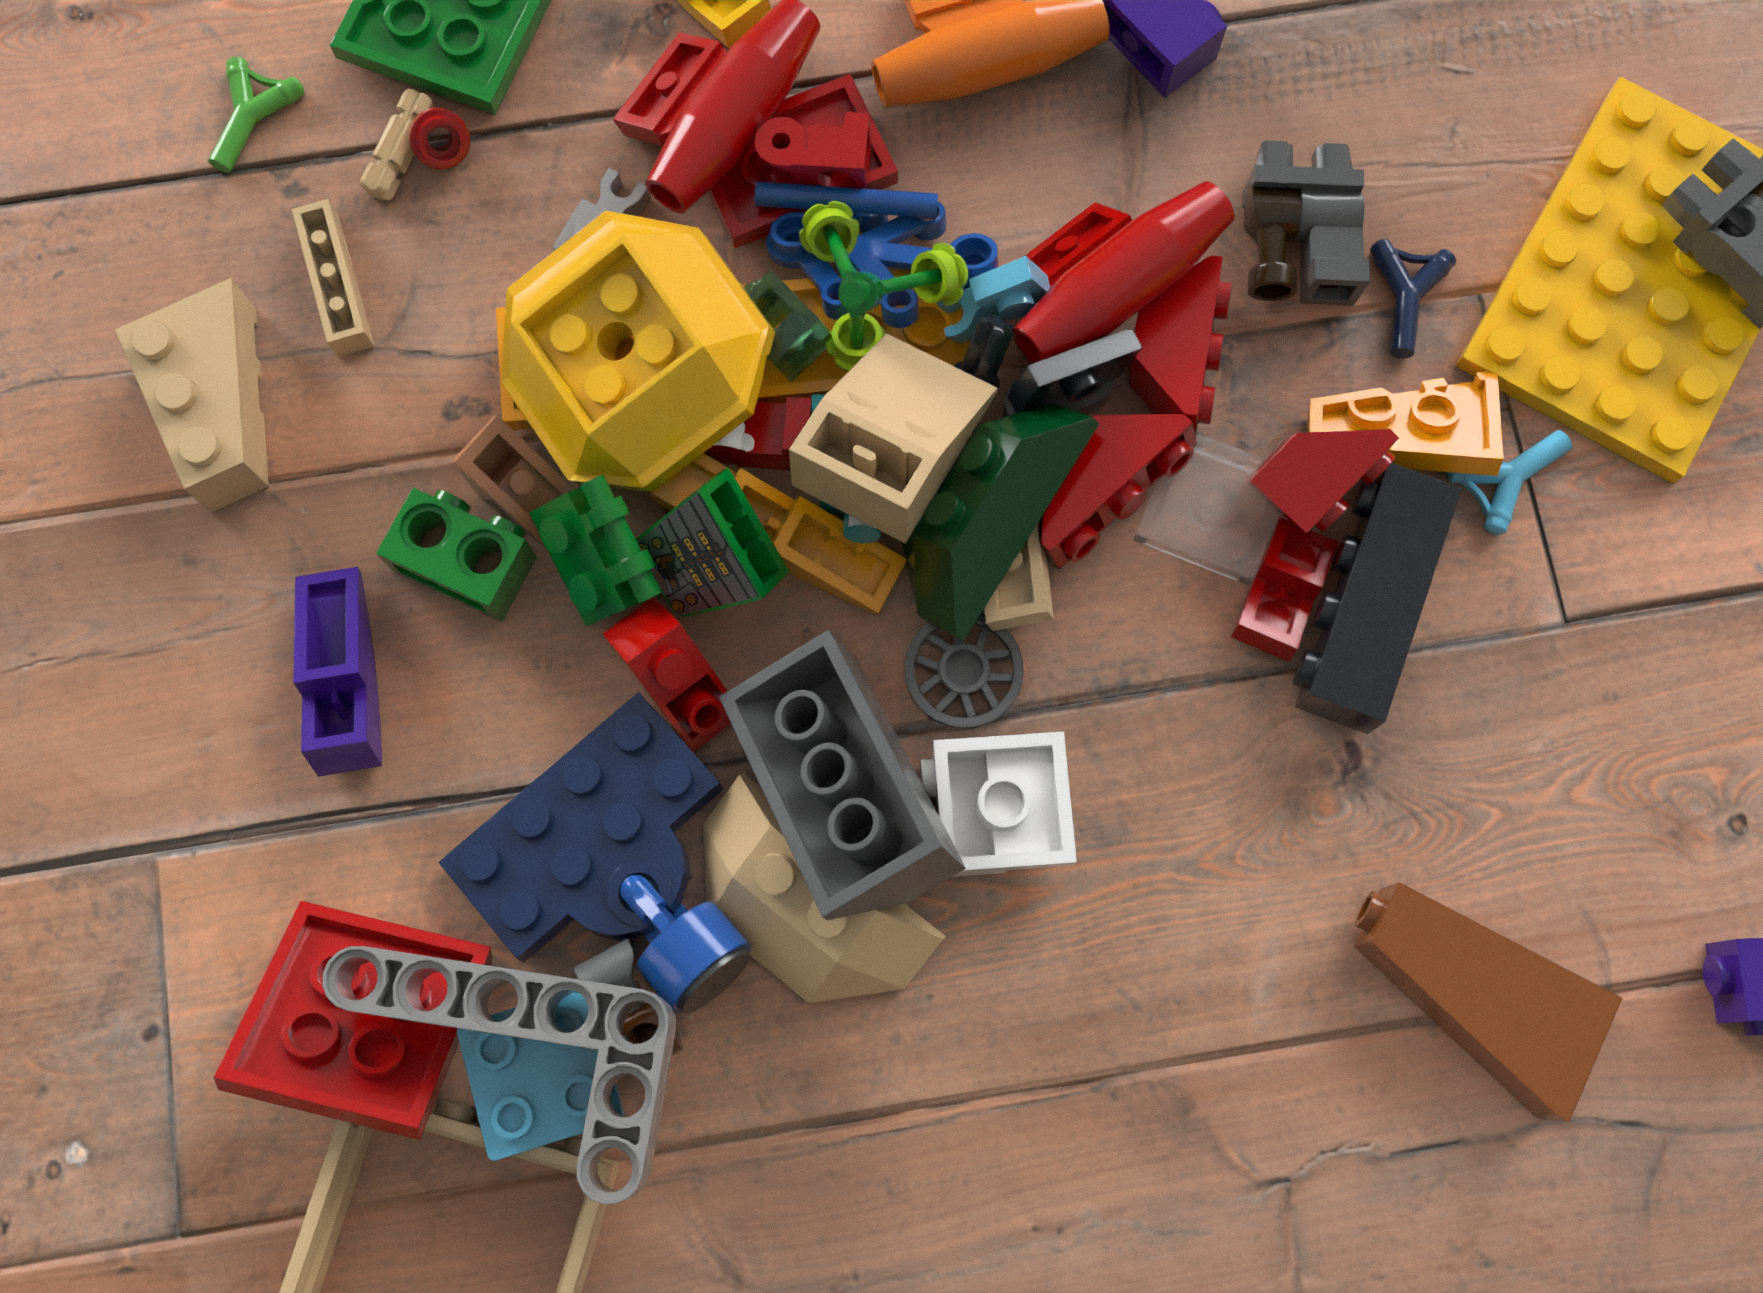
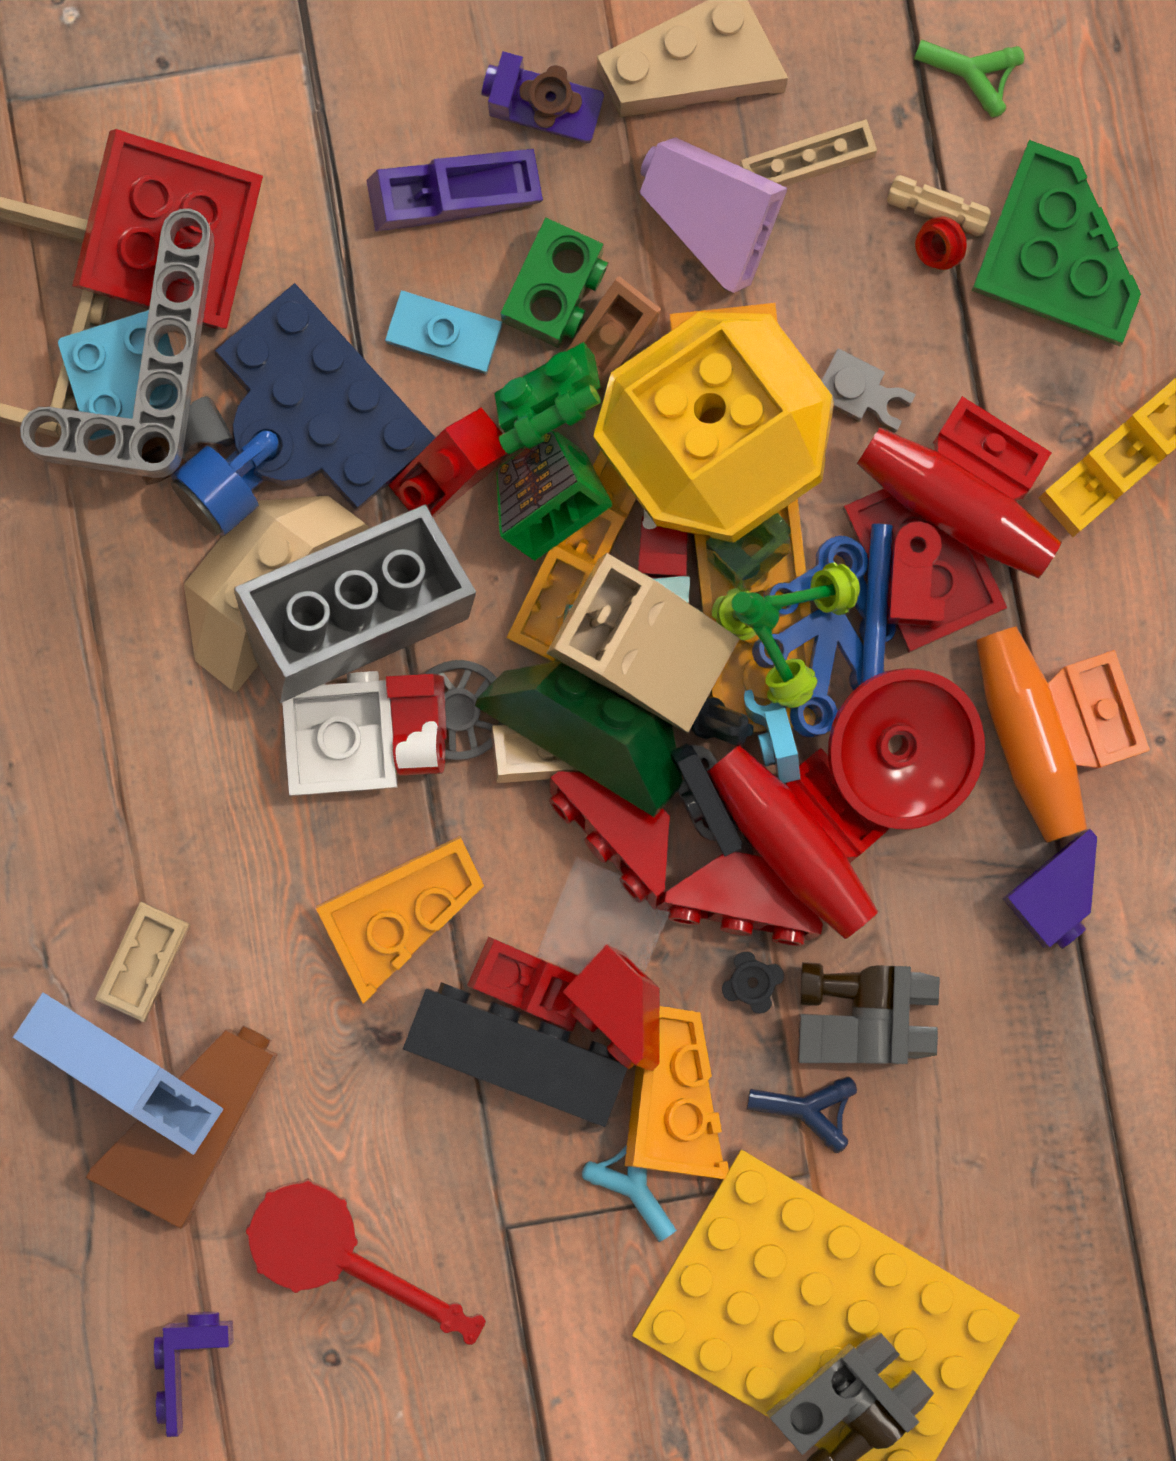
camera: 90 degrees right, 10 degrees up
(216, 543) = (551, 81): none -> reddish brown plate
(238, 568) = (503, 89): none -> dark purple bracket
(378, 369) = (712, 208): none -> lavender slope
(510, 685) = (443, 332): none -> medium azure plate
(984, 708) = (418, 723): none -> red leg
(1009, 168) = (937, 756): none -> red dish
(1208, 743) = (397, 912): none -> light orange wing
(1273, 329) = (767, 976): none -> black plate
(1282, 1053) = (142, 961): none -> tan plate
(1441, 1079) = (118, 1073): none -> light blue slope
(1607, 846) = (308, 1237): none -> red piece

